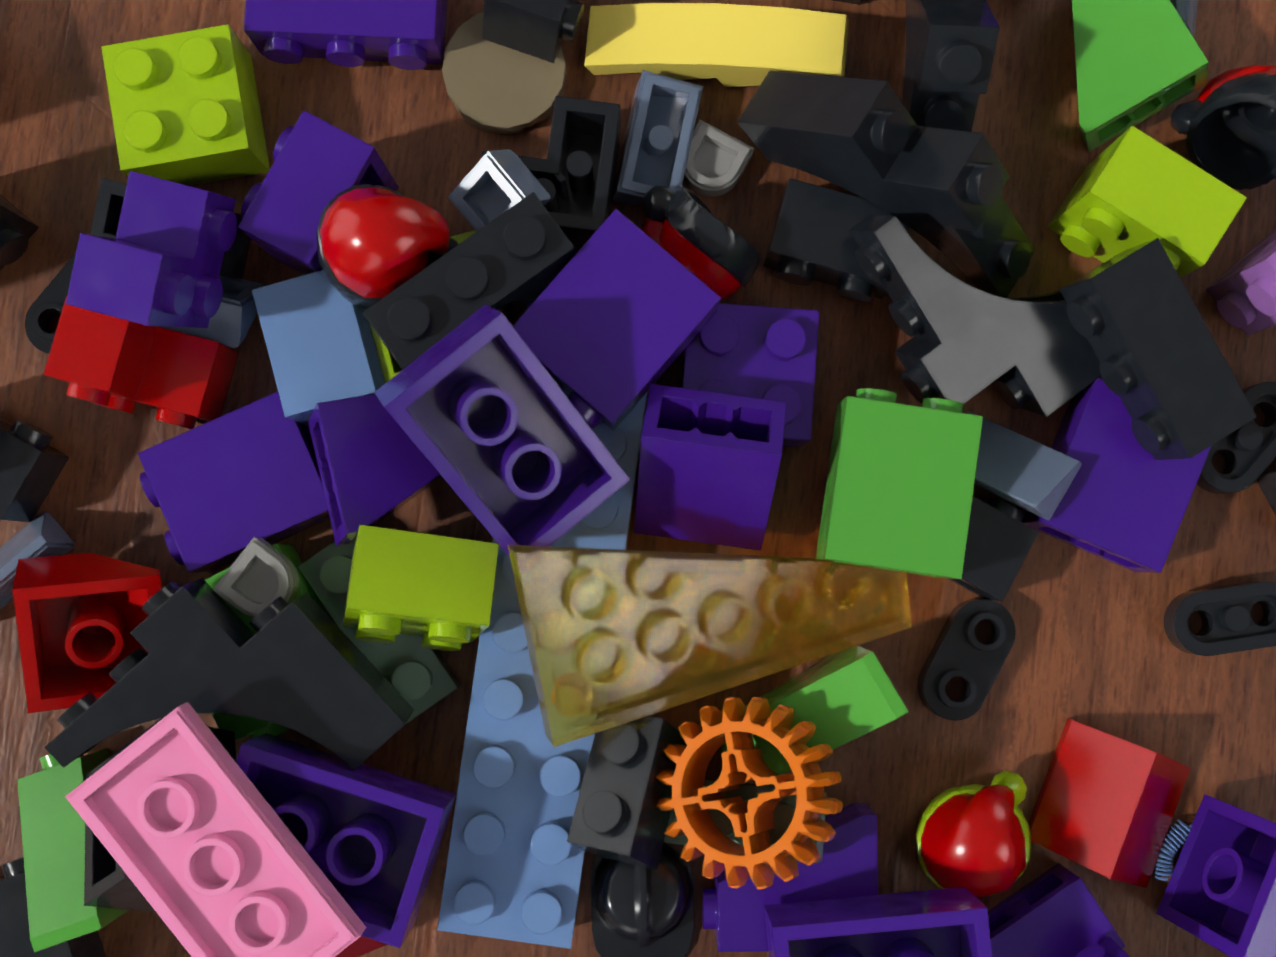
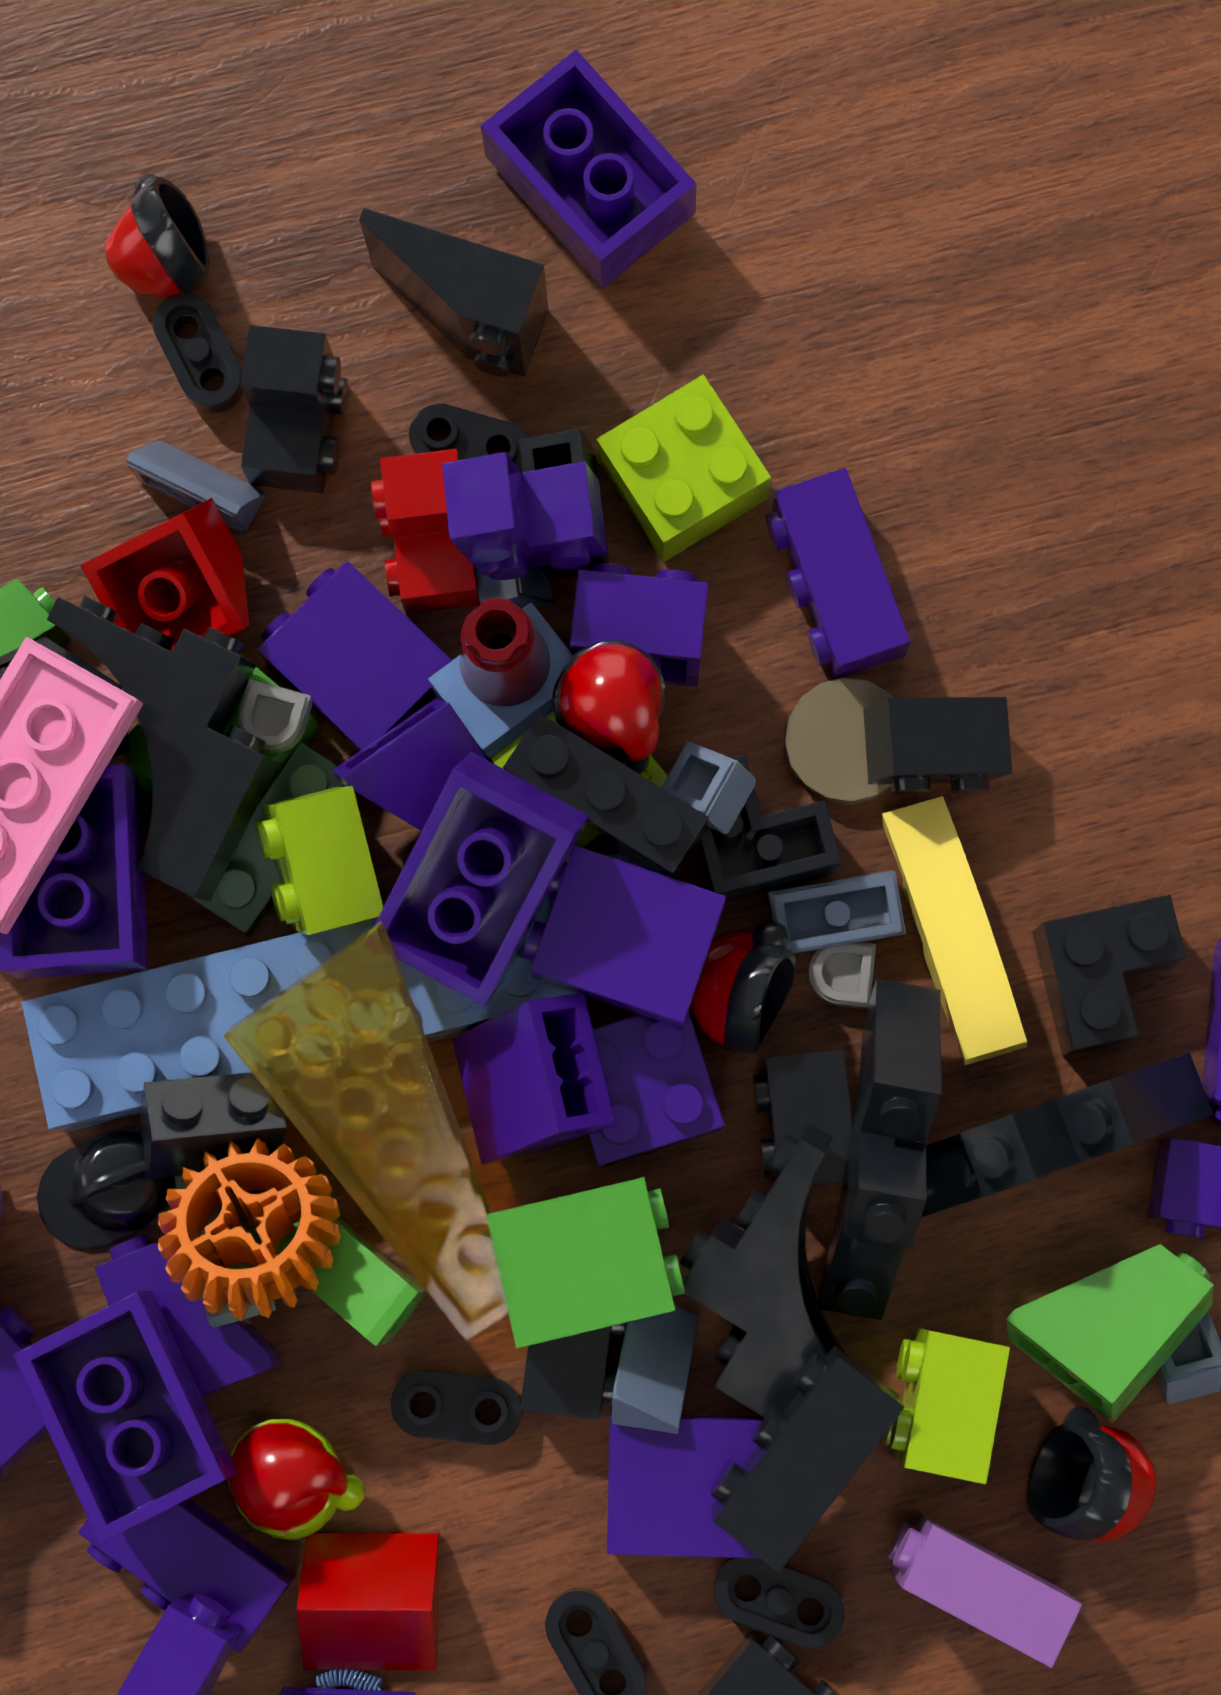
camera: 75 degrees right, 5 degrees down
(302, 343) = (504, 674): none -> dark red plant

